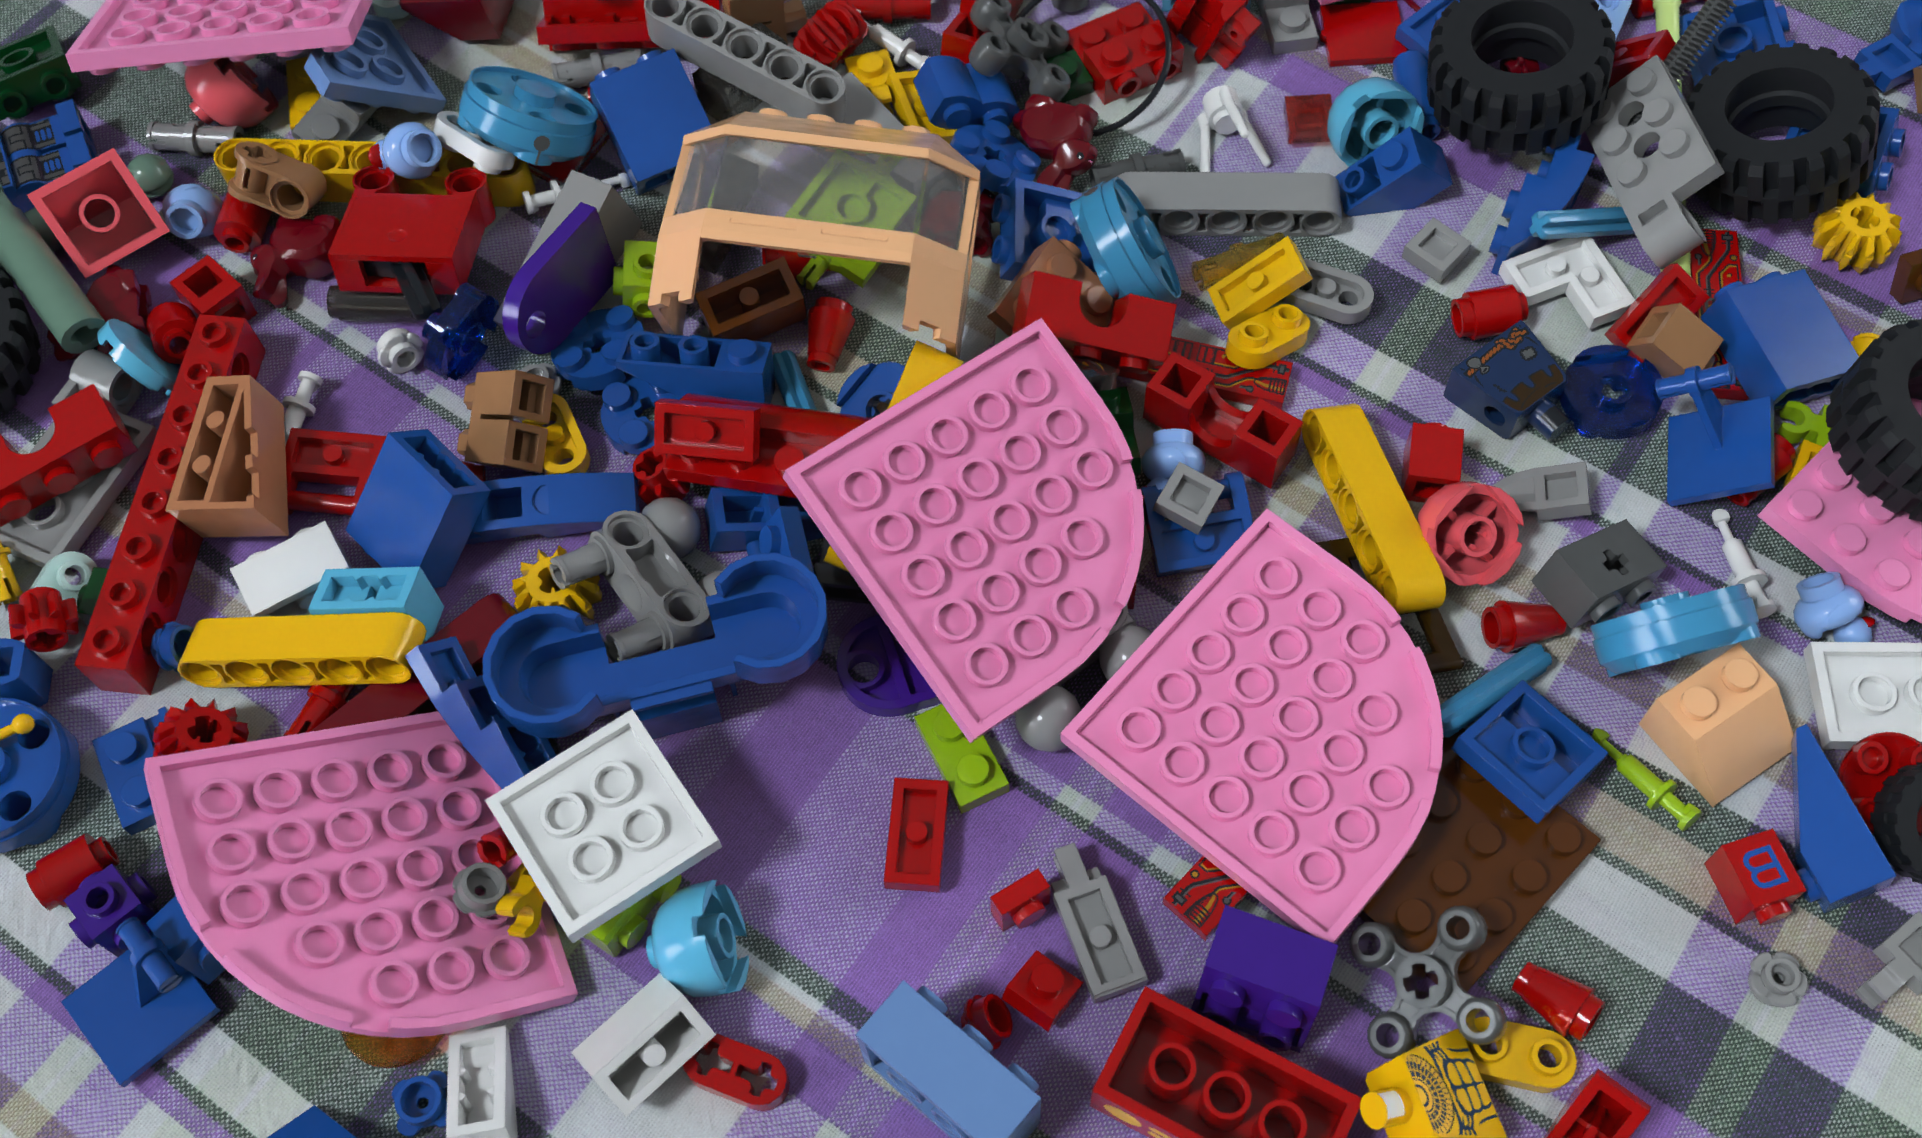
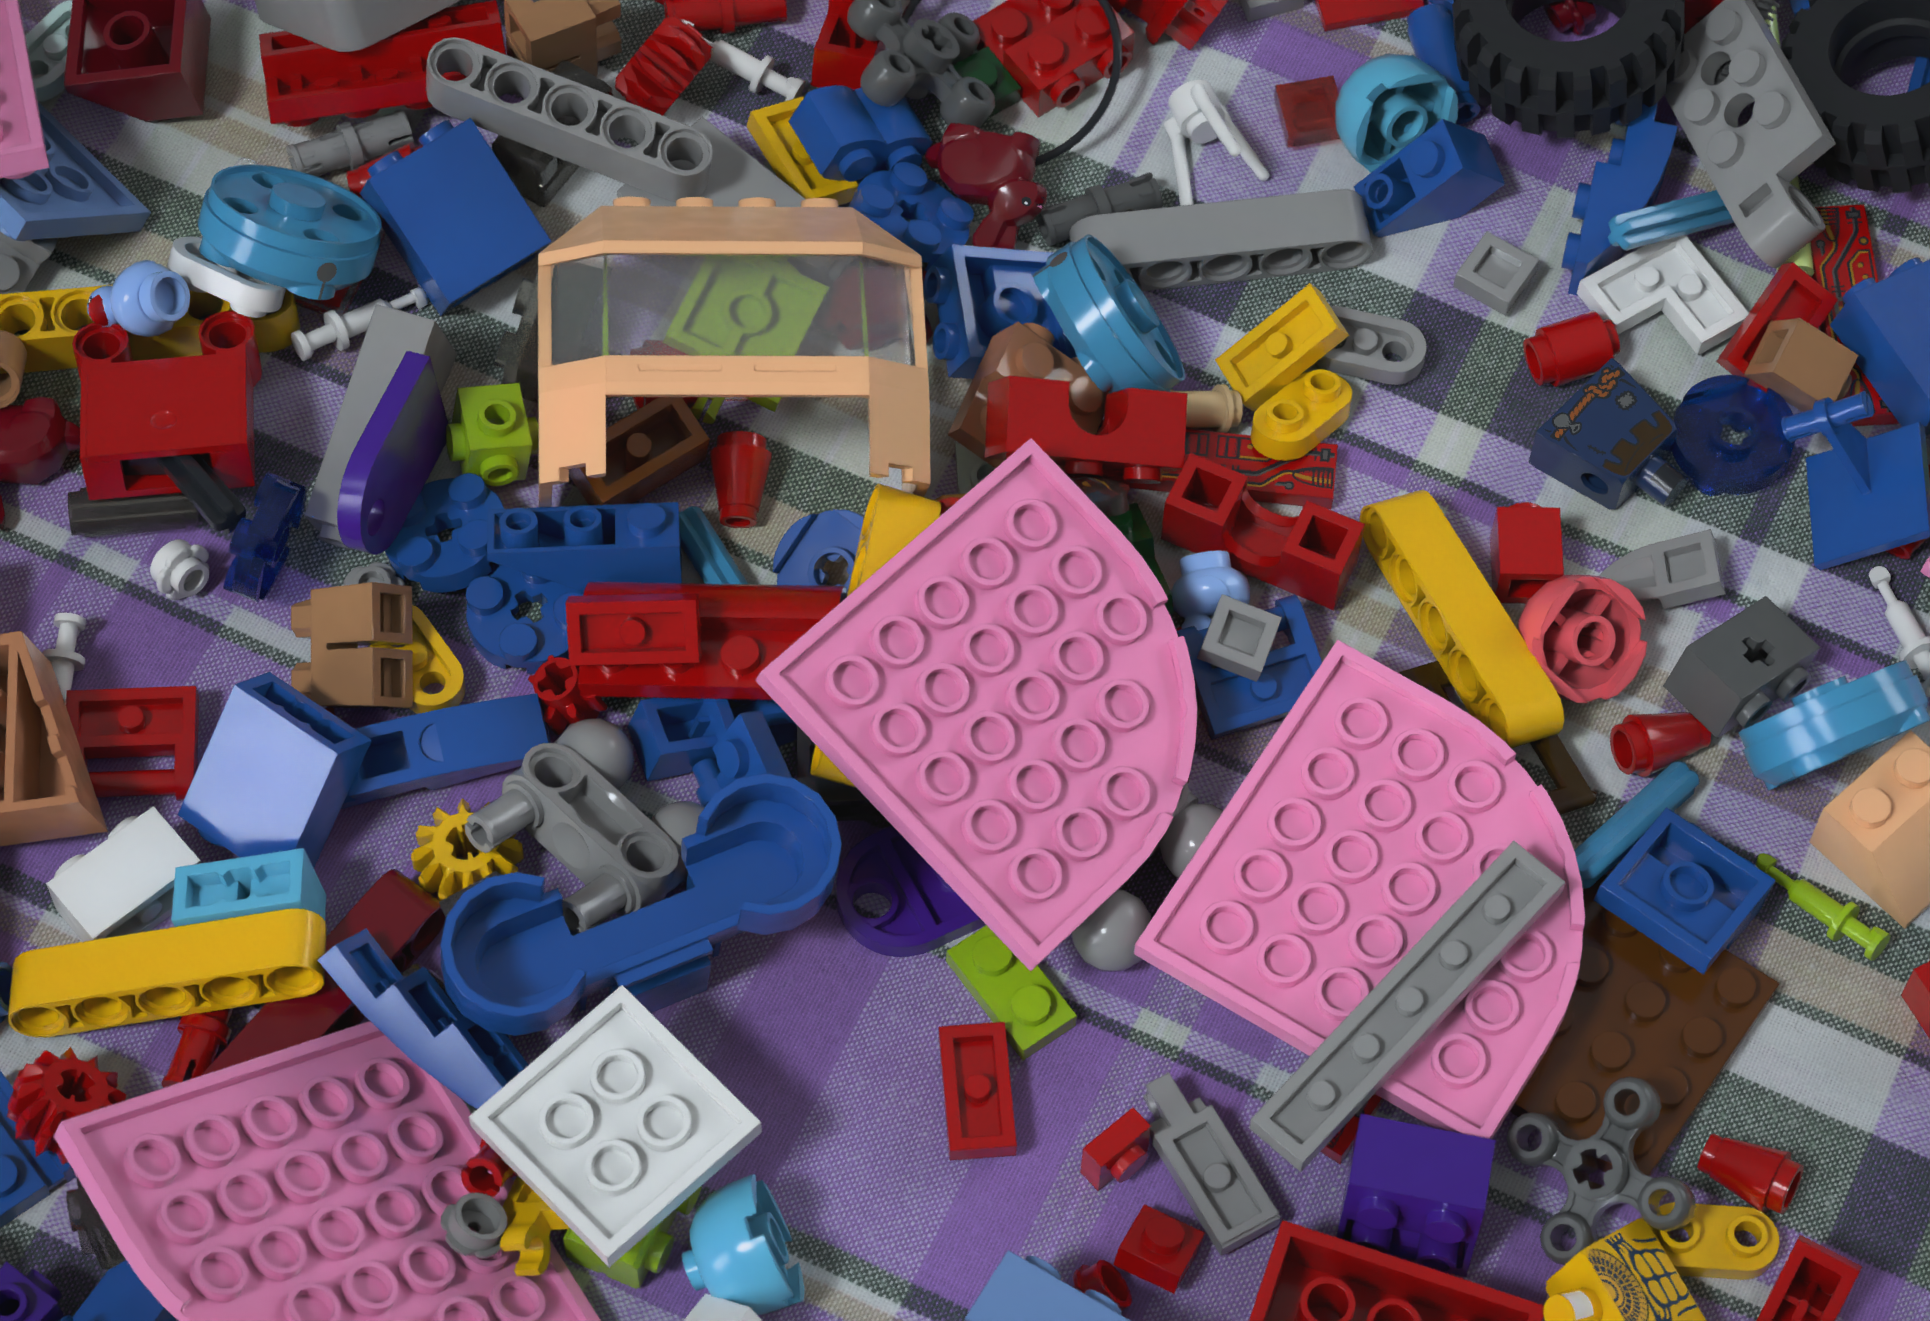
camera: 15 degrees left, 0 degrees up
(873, 72) = (727, 107): yellow plate -> none
(1197, 324) = (1213, 408): none -> tan pin
(1219, 266) = (1246, 313): clear yellow pin -> none
(1277, 818) = (1406, 1006): none -> light grey plate

